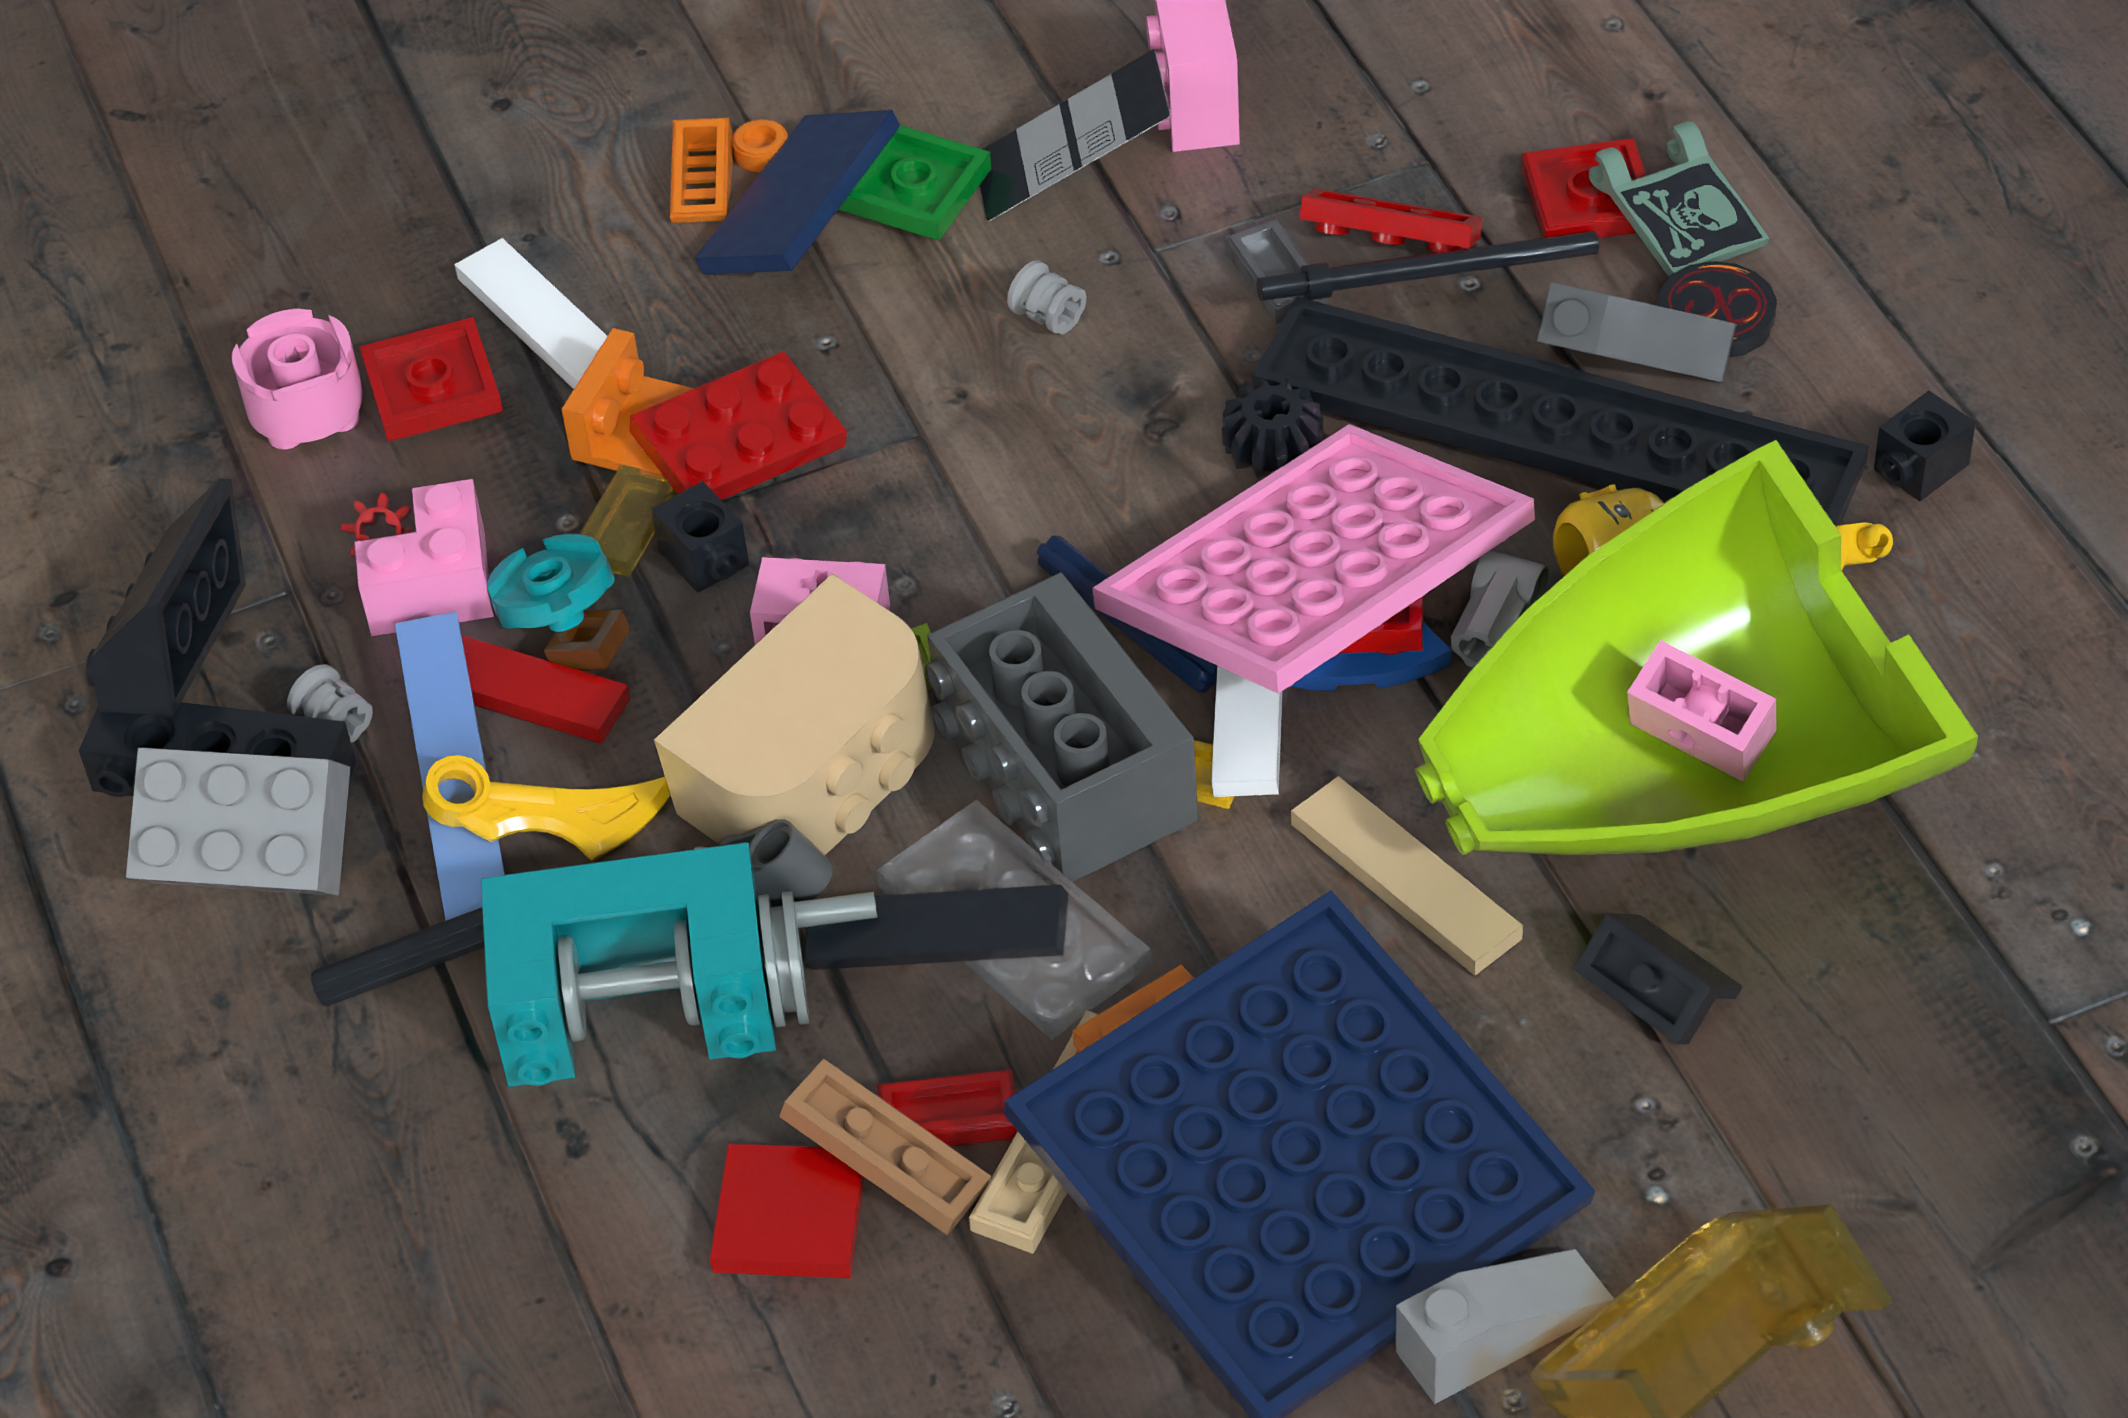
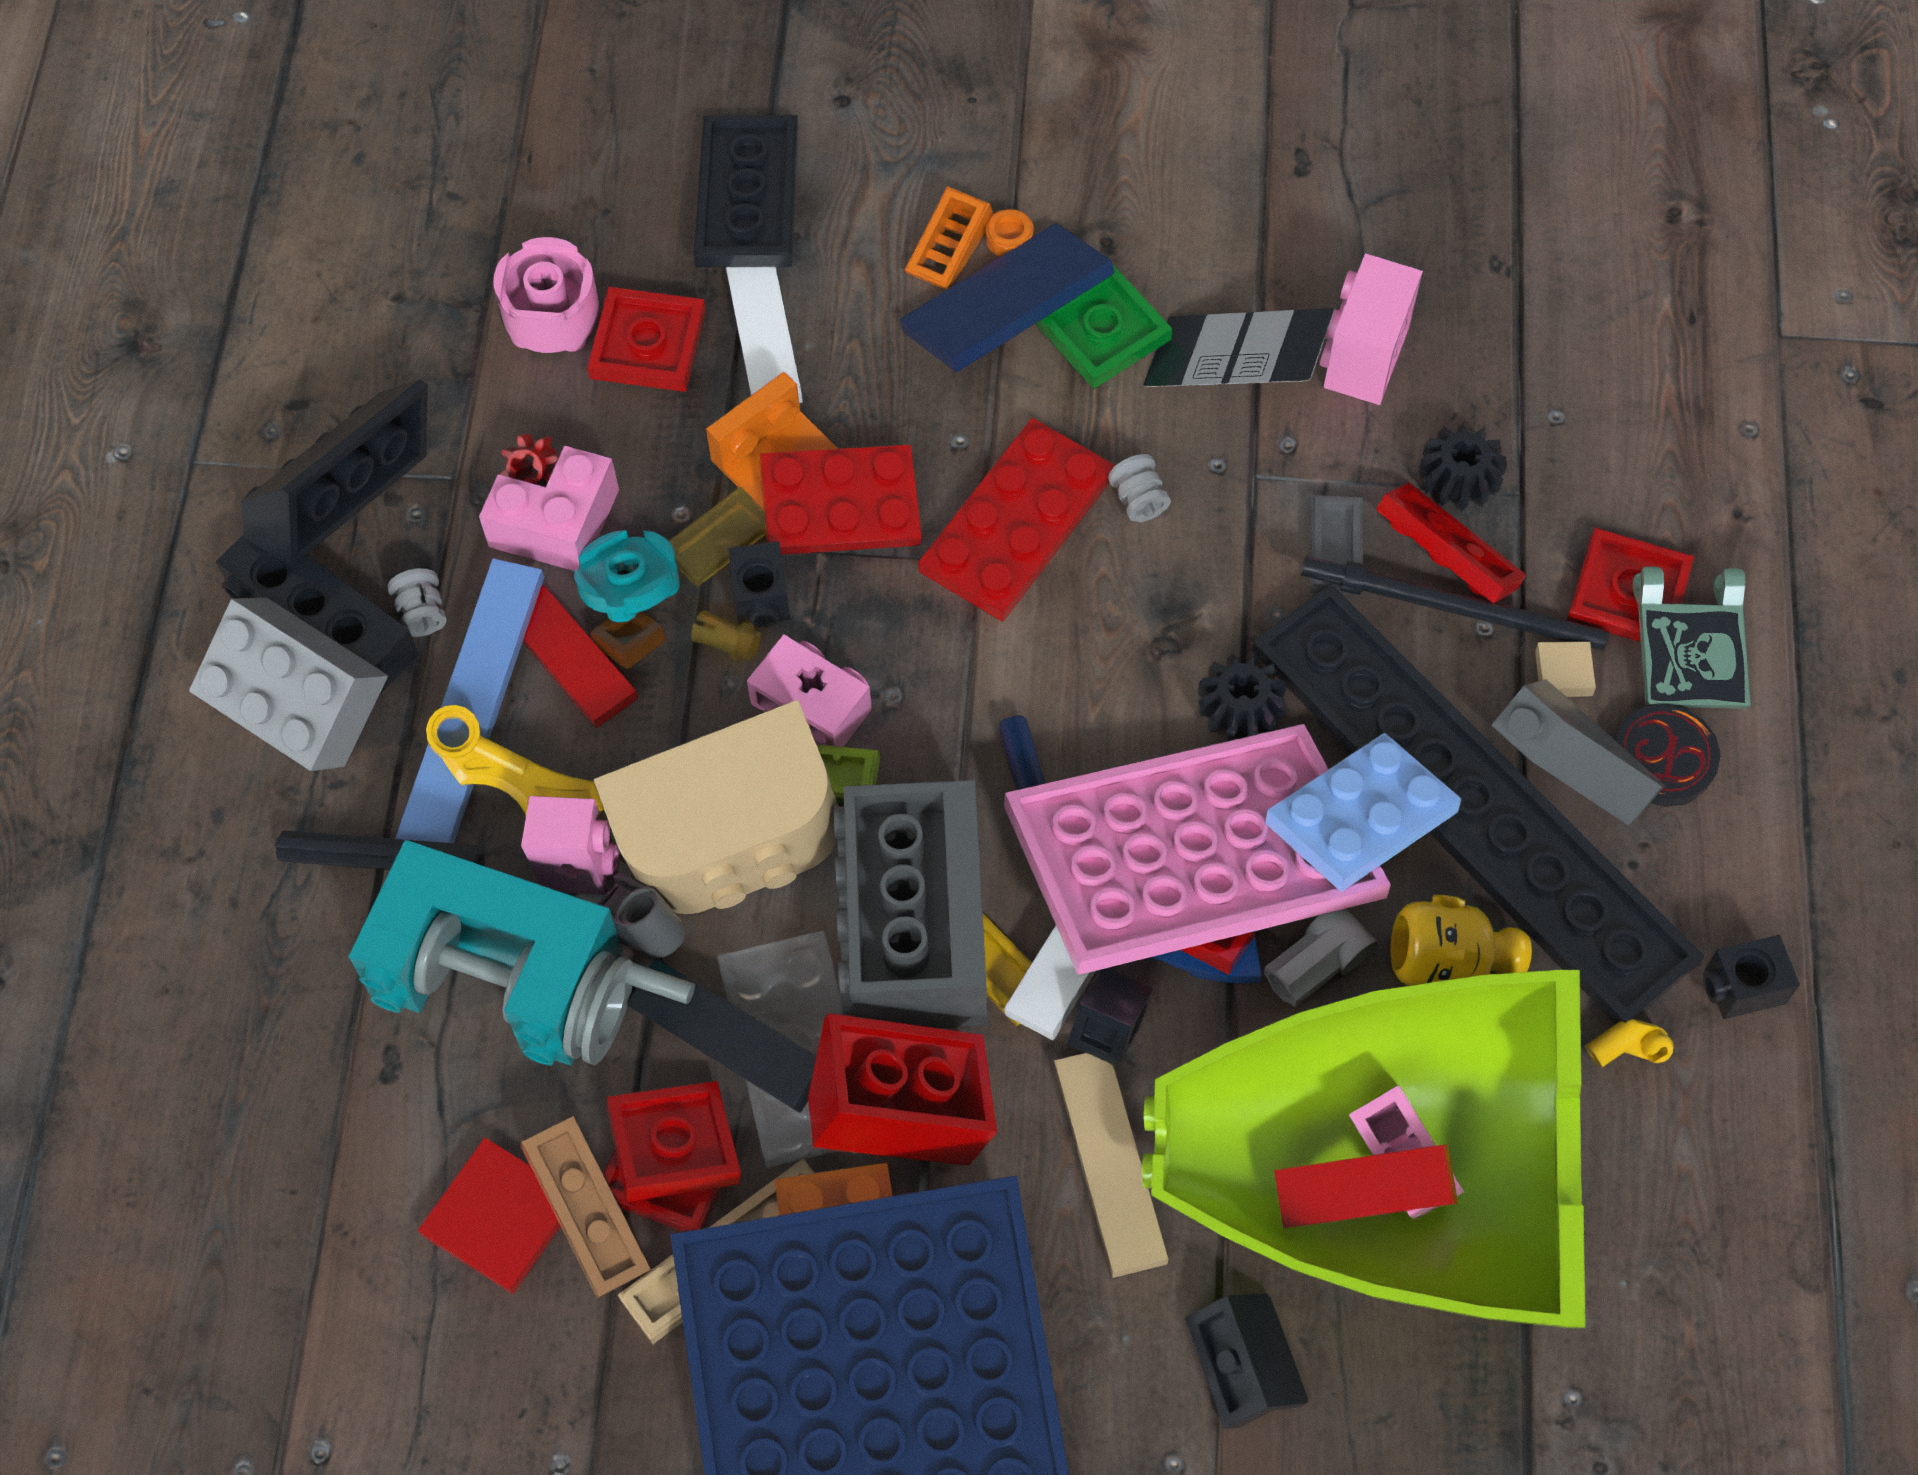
camera: 25 degrees right, 15 degrees up
(455, 211) = (747, 191): none -> black tile
(652, 811) = (569, 845): none -> bright pink brick
(694, 598) = (736, 639): none -> clear yellow pin
(934, 380) = (1016, 519): none -> red plate
(940, 1047) = (672, 1141): none -> red plate
(1159, 885) = (901, 1091): none -> red slope
(1325, 740) = (1109, 1016): none -> black brick
(1360, 152) = (1462, 466): none -> black gear
(1463, 454) = (1362, 811): none -> light blue plate
(1574, 269) = (1567, 667): none -> tan tile
(1684, 743) = (1366, 1186): none -> red tile

